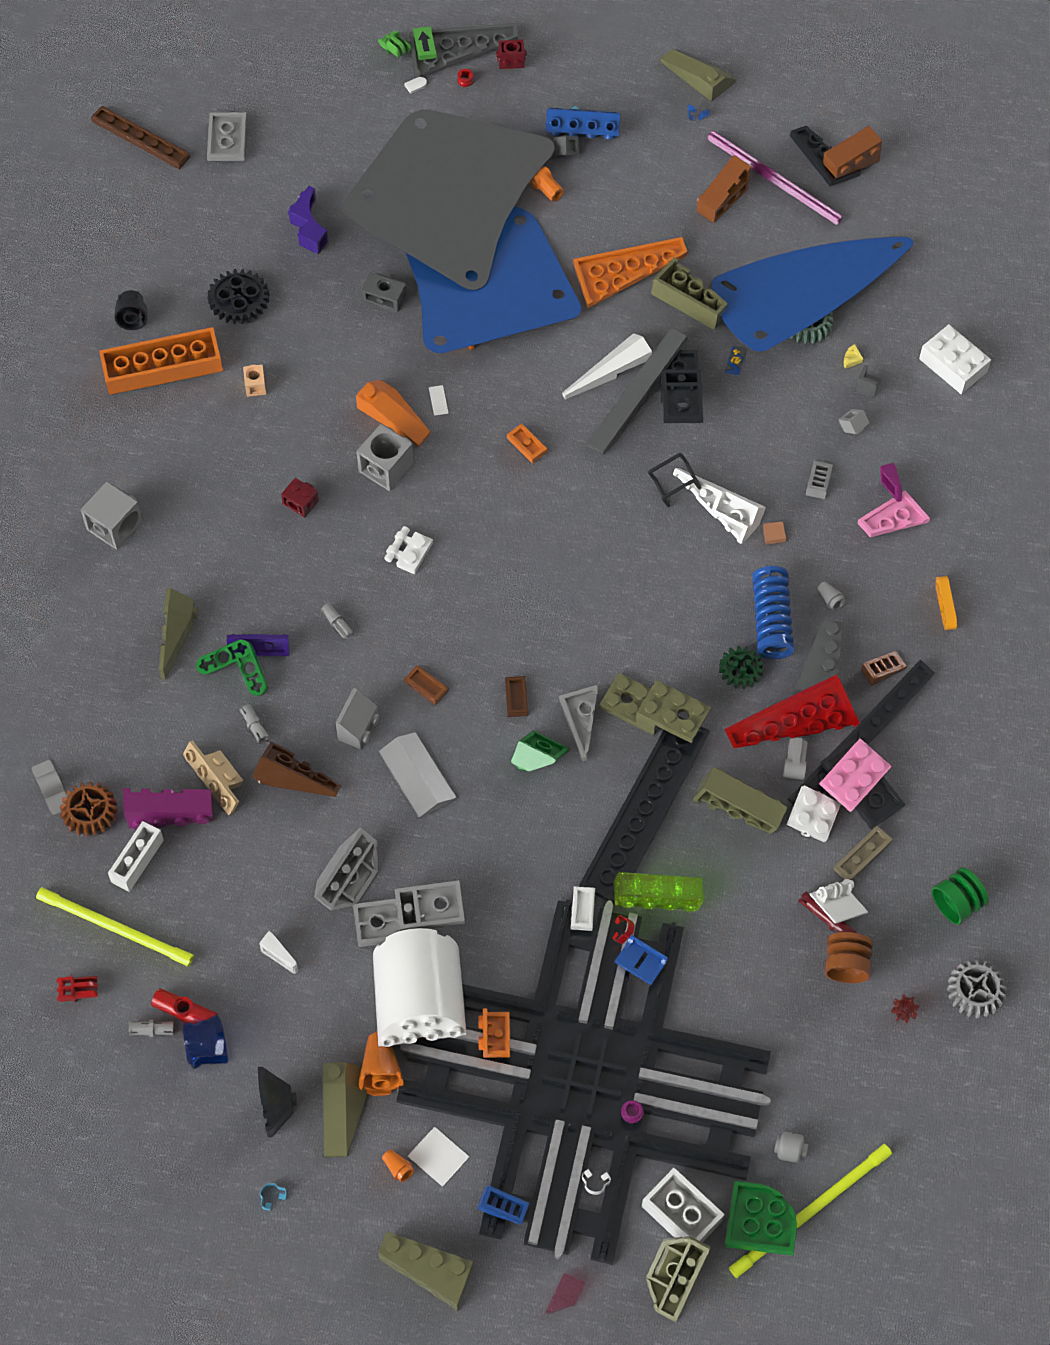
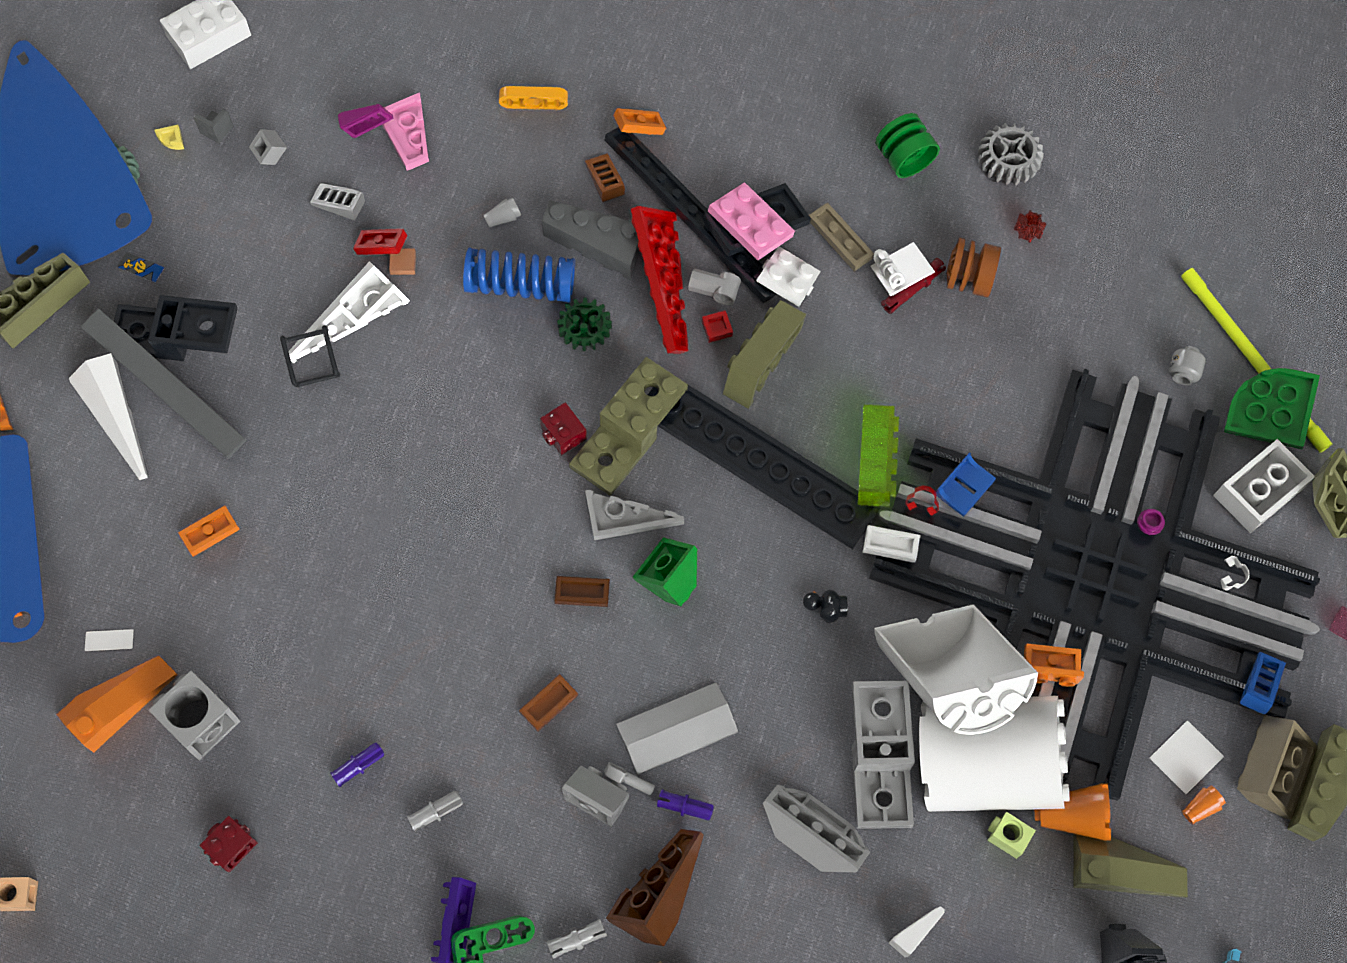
camera: 85 degrees left, 5 degrees up
(355, 1025) = (1022, 832): none -> yellowish green brick
(357, 784) = (686, 805): none -> dark purple axle
(364, 566) = (357, 764): none -> dark purple axle
(375, 735) = (620, 775): none -> light grey bar
(414, 553) = (345, 696): white plate -> none
(436, 1222) = (1277, 766): none -> dark tan slope
(472, 943) = (960, 668): none -> white cylinder
(527, 872) = (831, 605): none -> black animal
(646, 663) = (562, 429): none -> dark red head
(758, 766) = (717, 326): none -> red plate
(784, 512) = (380, 241): none -> red plate
(938, 683) = (639, 121): none -> orange plate

